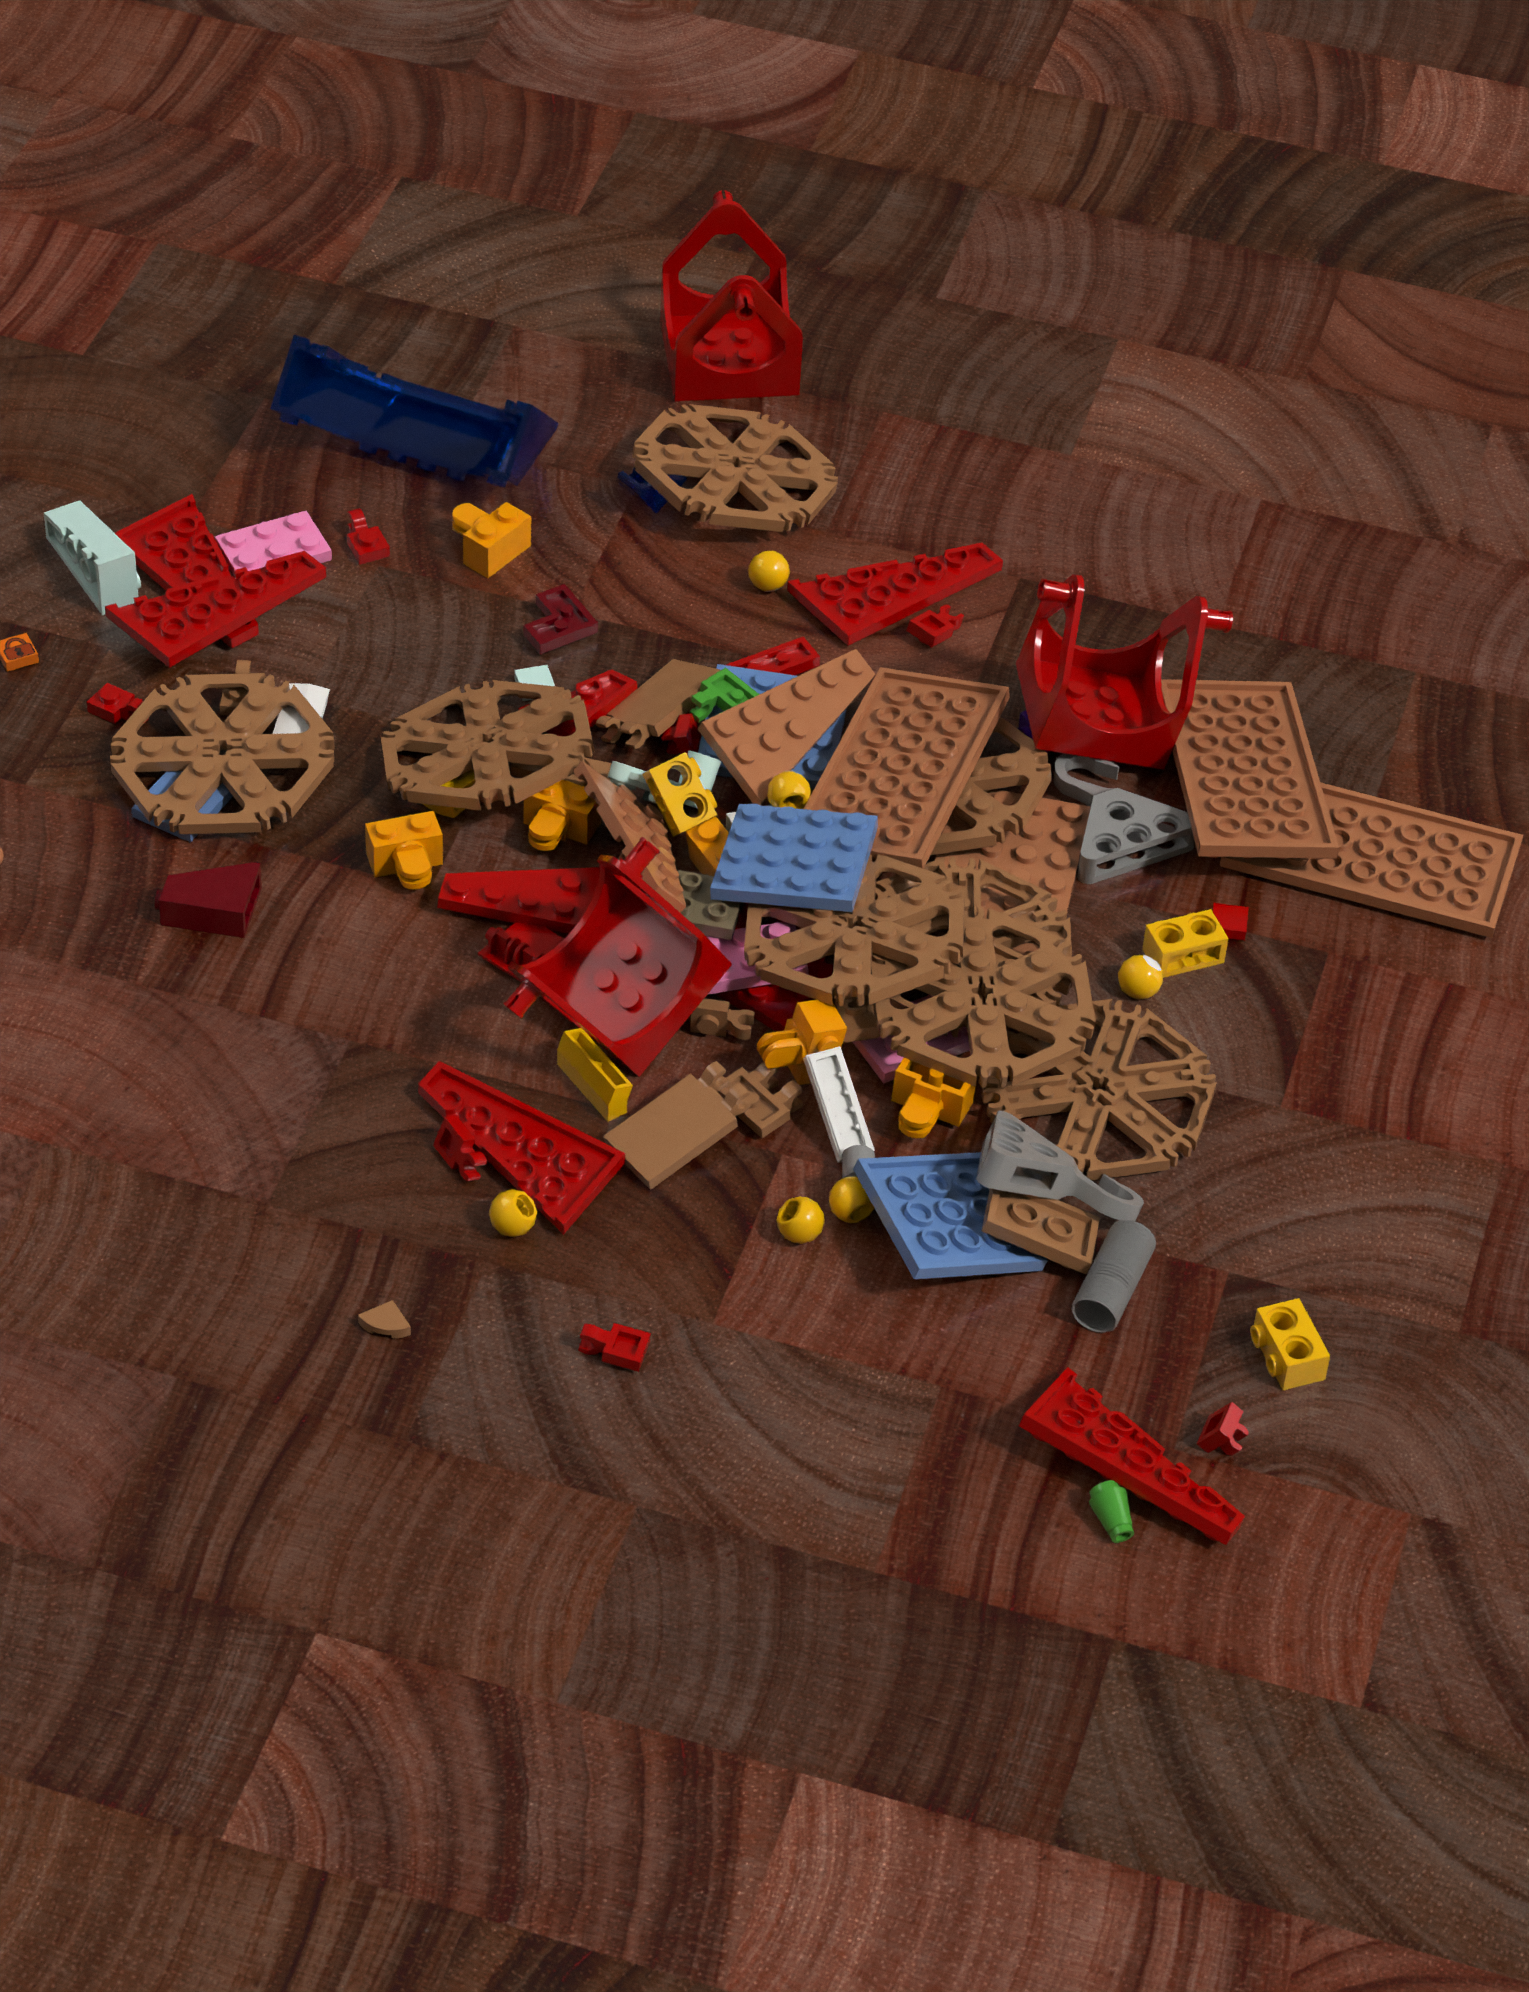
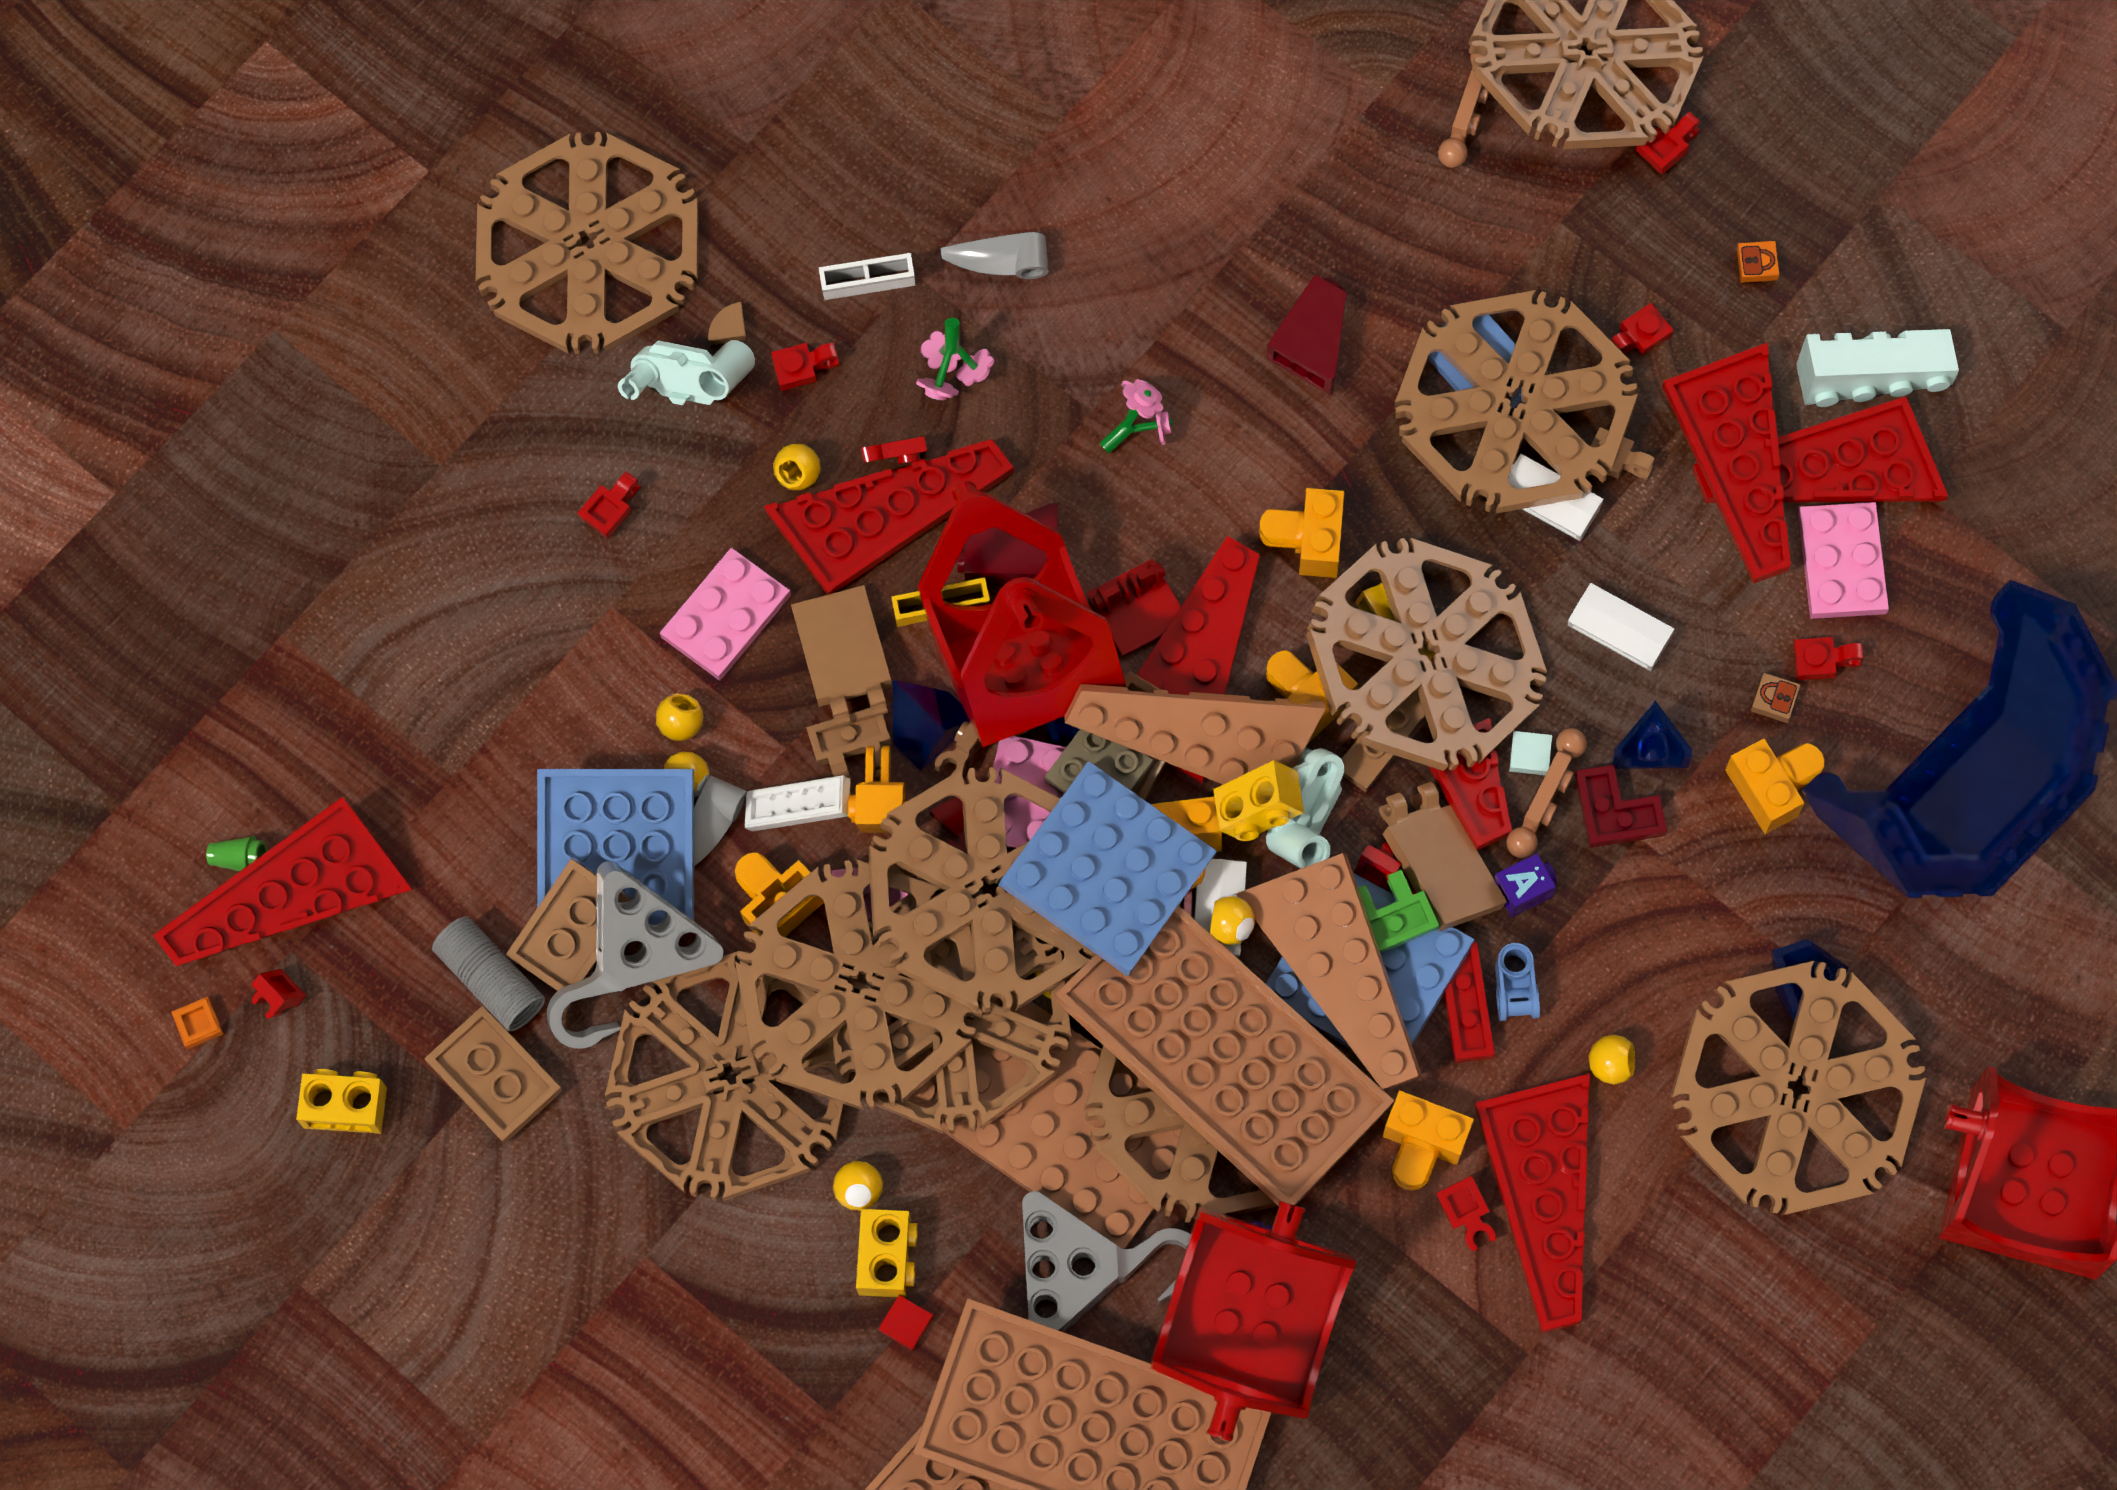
camera: 120 degrees right, 25 degrees up
(224, 1134) = (1003, 255): none -> light grey piece
(290, 1222) = (865, 269): none -> white piece
(338, 1489) = (586, 267): none -> medium nougat plate
(346, 973) = (1142, 401): none -> bright pink plant
(352, 1125) = (944, 352): none -> bright pink plant
(397, 653) = (1620, 627): none -> white piece
(401, 1256) = (797, 365): none -> red plate
(413, 559) = (1775, 697): none -> tile
(455, 1297) = (688, 372): none -> light aqua piece
(491, 610) = (1652, 744): none -> clear blue slope
(520, 1045) = (1003, 556): none -> dark red slope
(567, 658) = (1570, 745): none -> nougat plate
(651, 650) = (1526, 884): none -> dark purple brick
(679, 1231) = (725, 614): none -> bright pink plate
(713, 1043) = (924, 721): none -> clear blue slope
(735, 639) = (1516, 991): none -> medium blue piece
(890, 650) = (1424, 1135): none -> light orange brick
(1197, 1249) = (493, 1074): none -> medium nougat plate
(1283, 1489) = (197, 1023): none -> orange tile

